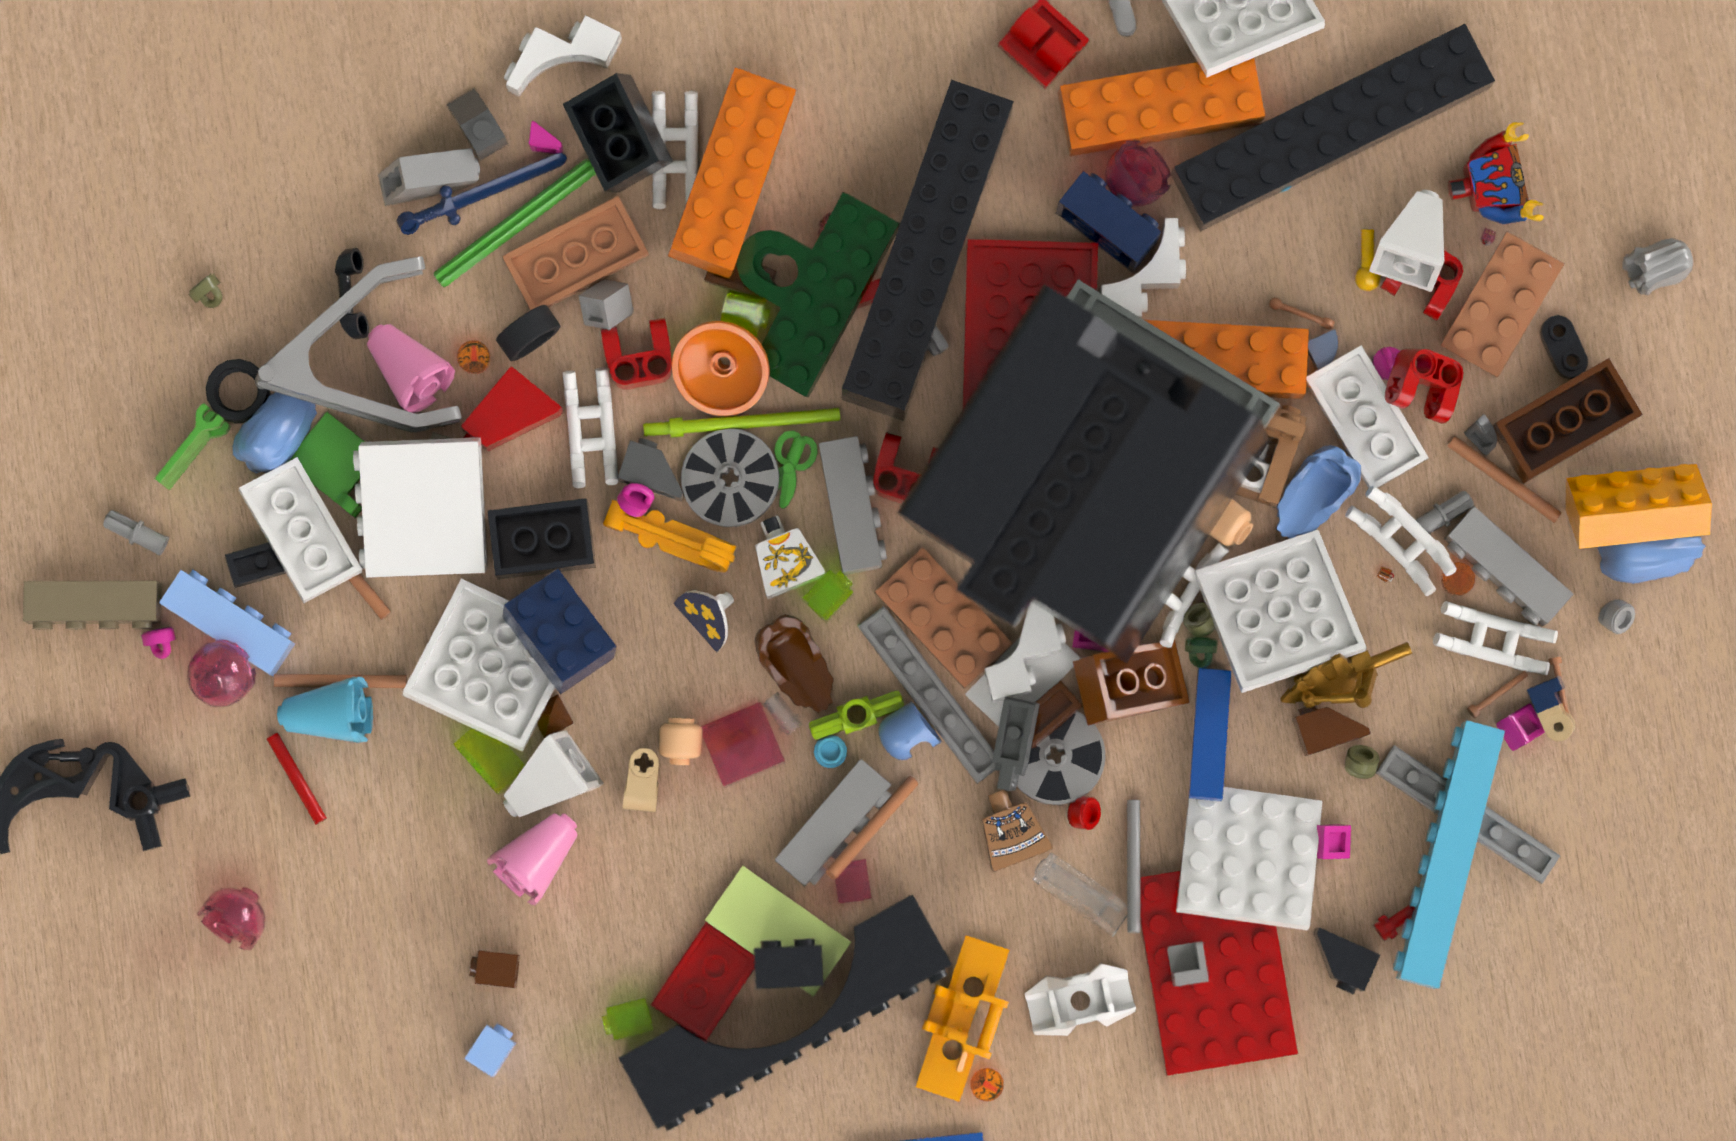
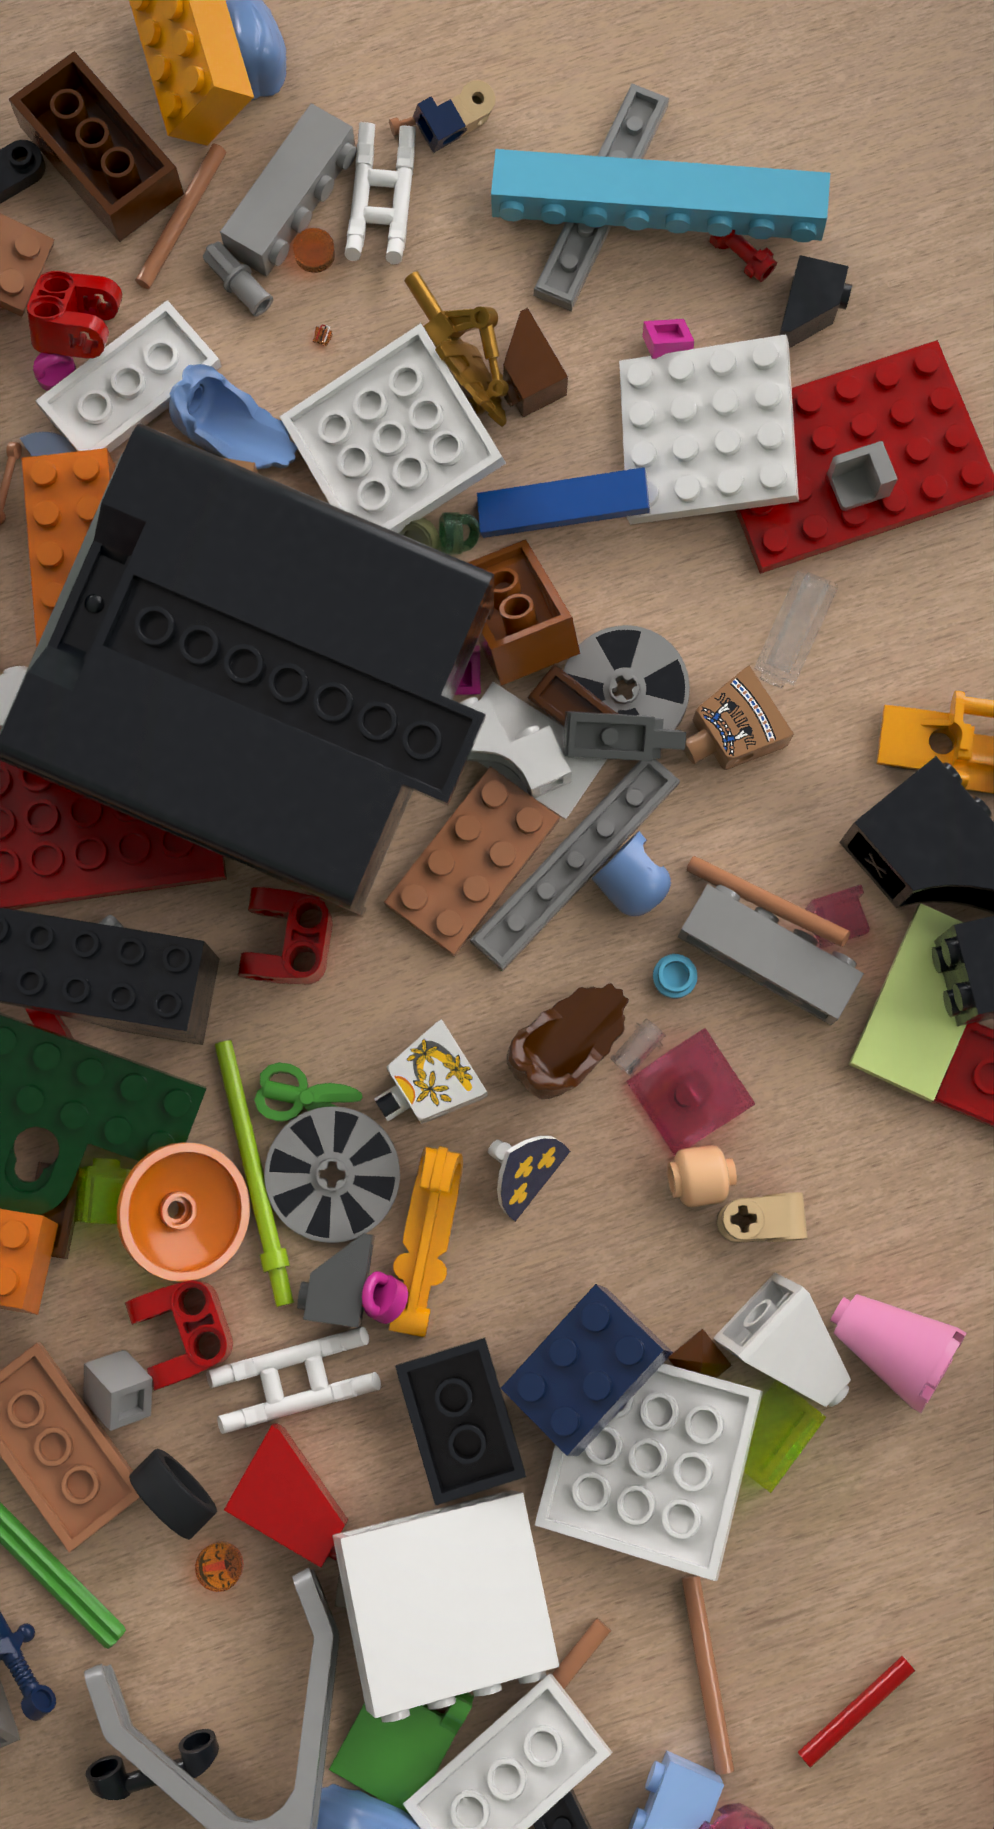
camera: 95 degrees left, 5 degrees down
(330, 711) = (757, 1678): medium azure cone -> none
(409, 367) = (248, 1660): bright pink cone -> none
(829, 595) = (469, 1012): clear neon green brick -> none
(838, 721) = (633, 968): lime axle -> none
(850, 505) = (343, 1004): light grey brick -> none
(1051, 1000) = (937, 643): white piece -> none
(1084, 813) = (693, 639): red tile -> none
(1133, 867) = (747, 570): light grey bar -> none
(1361, 761) = (561, 322): olive tile -> none
(1408, 556) = (298, 312): white piece -> none
(1474, 710) = (473, 206): nougat piece -> none
(1482, 435) = (127, 245): dark grey tile -> none
(1521, 727) = (478, 151): dark pink slope -> none
(1617, 616) = (328, 58): light grey tile -> none

